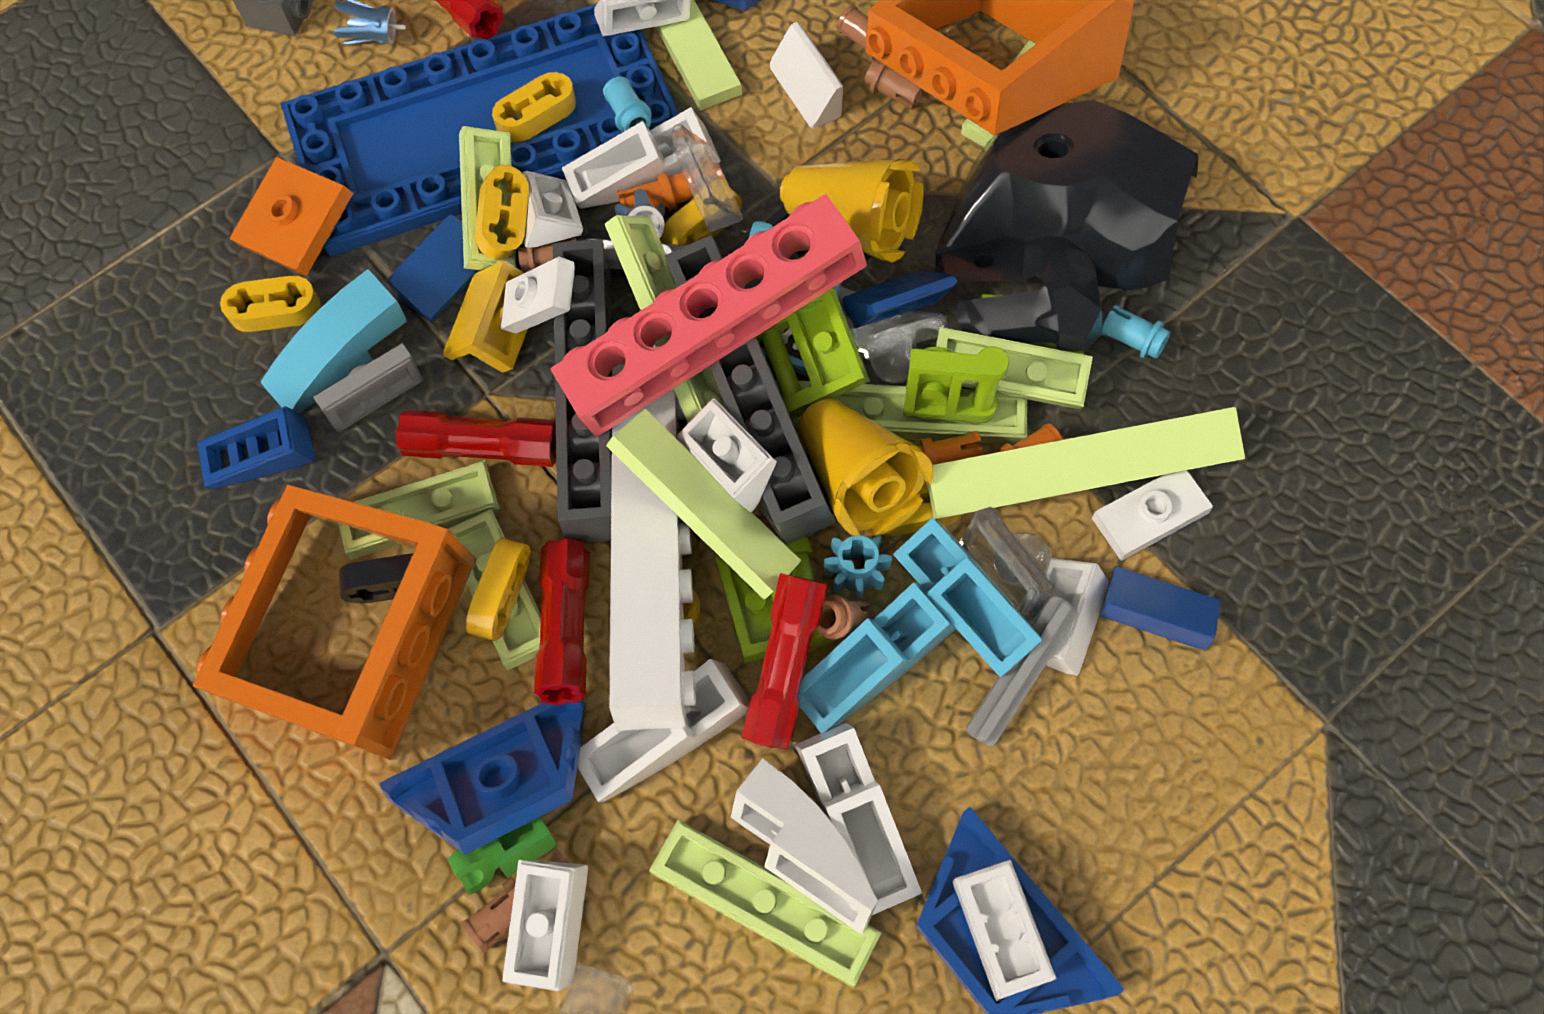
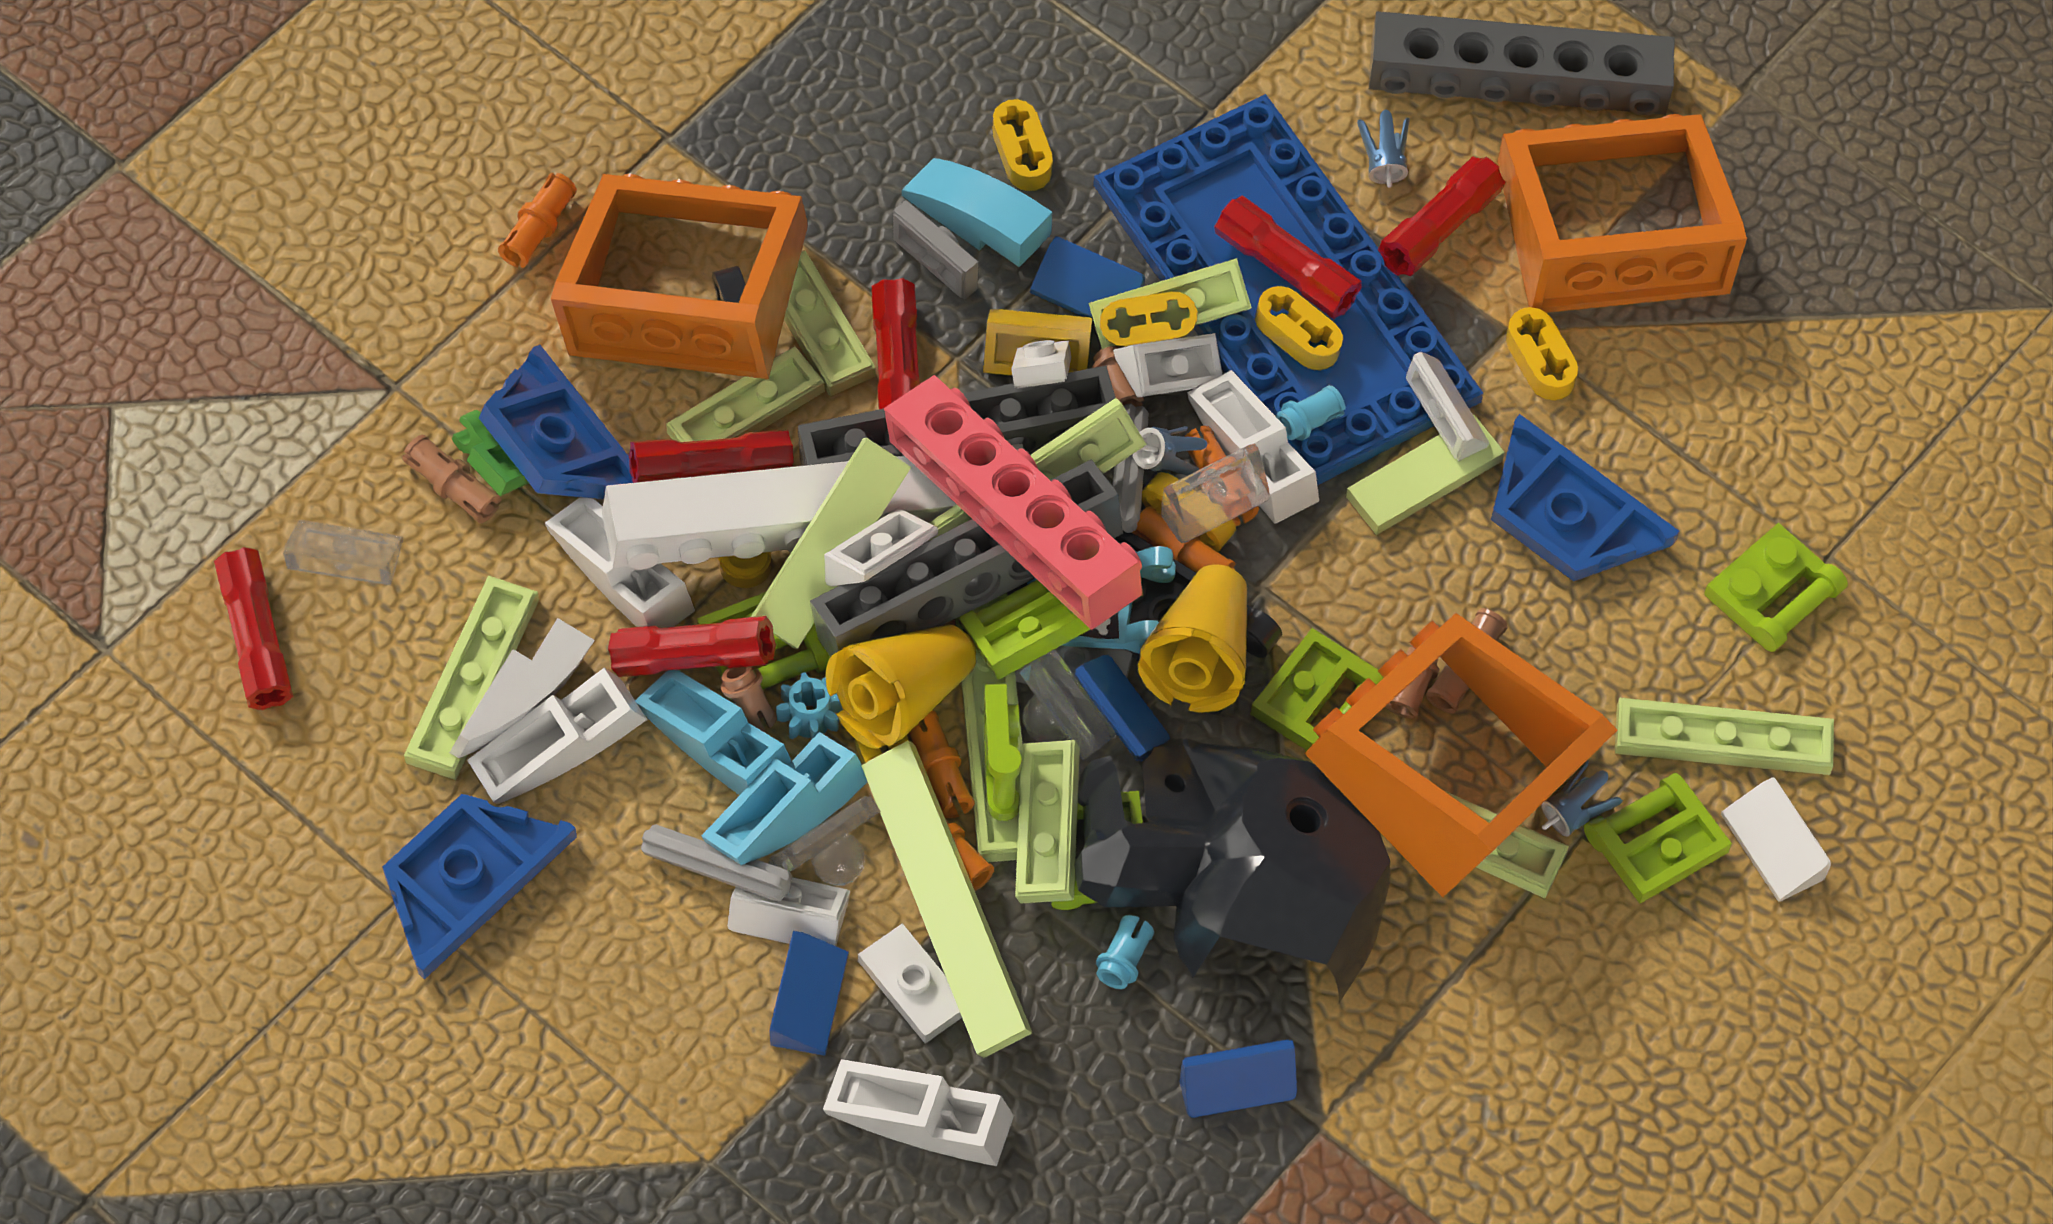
camera: 75 degrees right, 5 degrees down
(220, 770) = (537, 220): none -> orange pin
(288, 448) = (870, 198): blue slope -> none
(291, 216) = (1118, 135): orange plate -> none
(435, 118) = (1317, 278): none -> red axle
(498, 589) = (732, 397): yellow beam -> none
(545, 924) = (429, 498): white slope -> none
(759, 208) = (1191, 554): none -> orange pin
(807, 78) = (1402, 595): white slope -> none
(875, 141) = (1307, 684): none -> lime plate
(1003, 930) = (460, 854): white plate -> none
(1258, 263) = (1239, 1078): none -> blue slope
(1291, 521) = (920, 1111): none -> white slope

